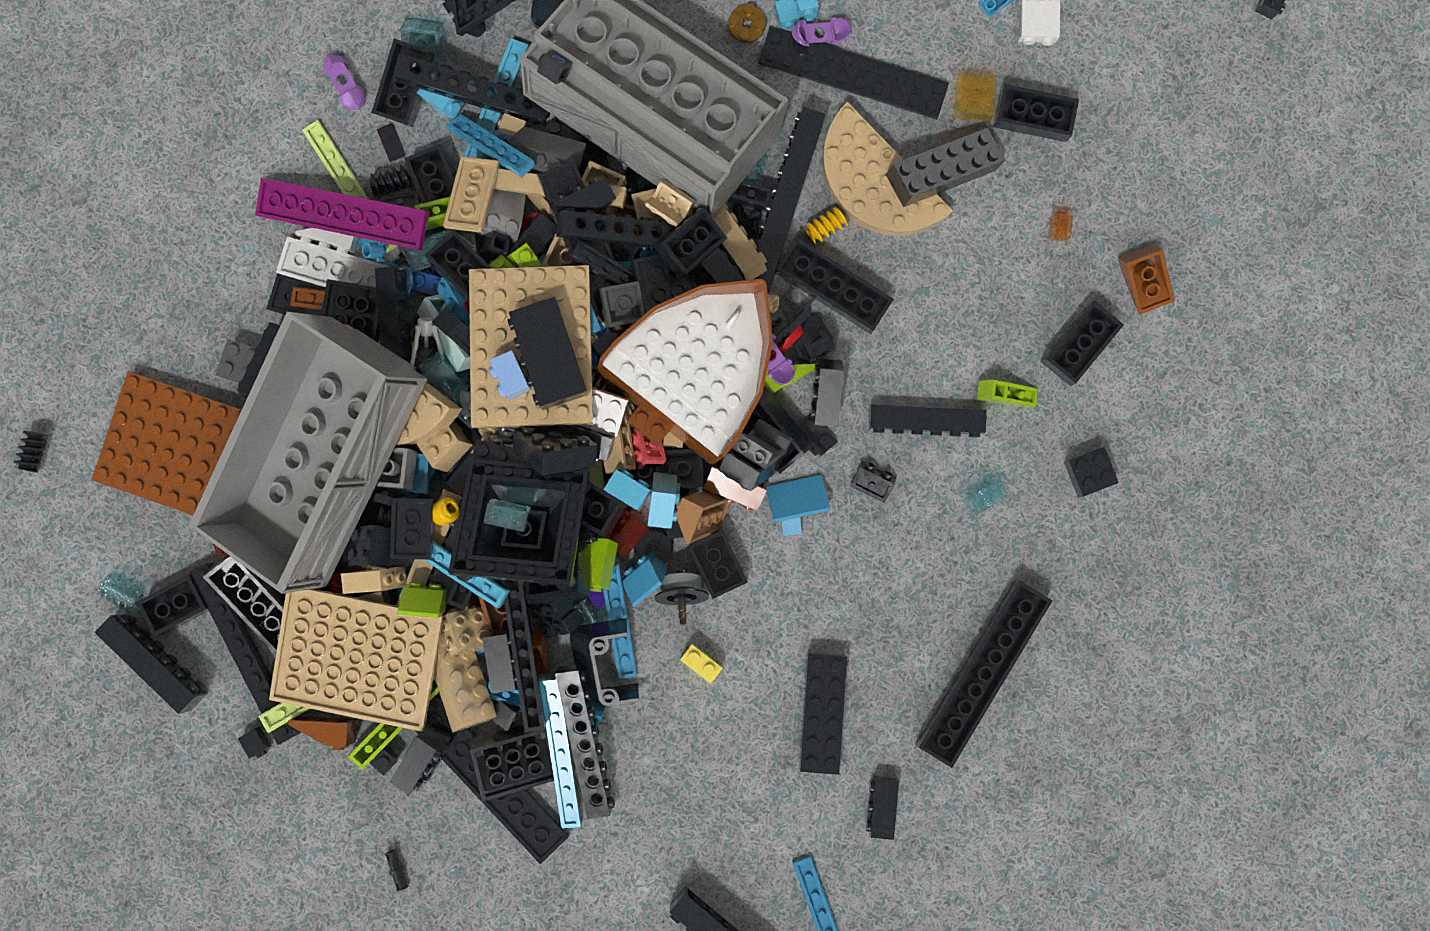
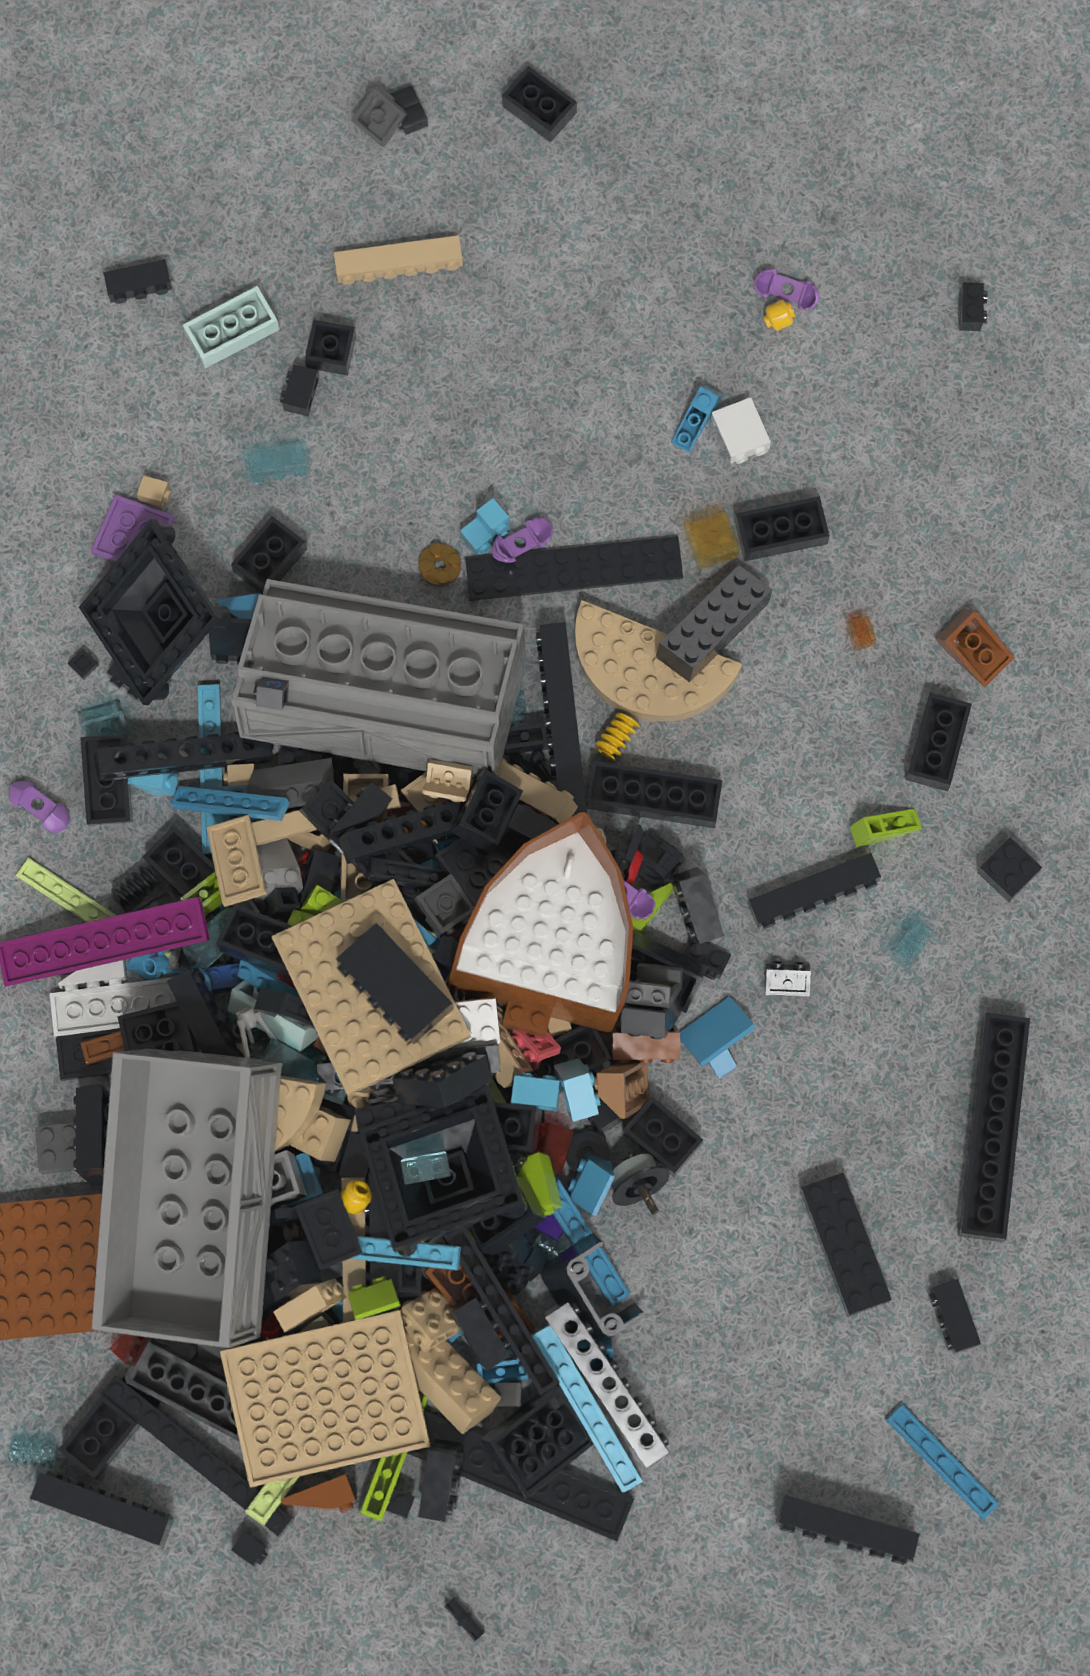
camera: 20 degrees left, 10 degrees down
(390, 142) = (116, 848): black piece -> none
(509, 375) = (364, 1023): light blue brick -> none
(701, 663) = (693, 1249): light yellow brick -> none

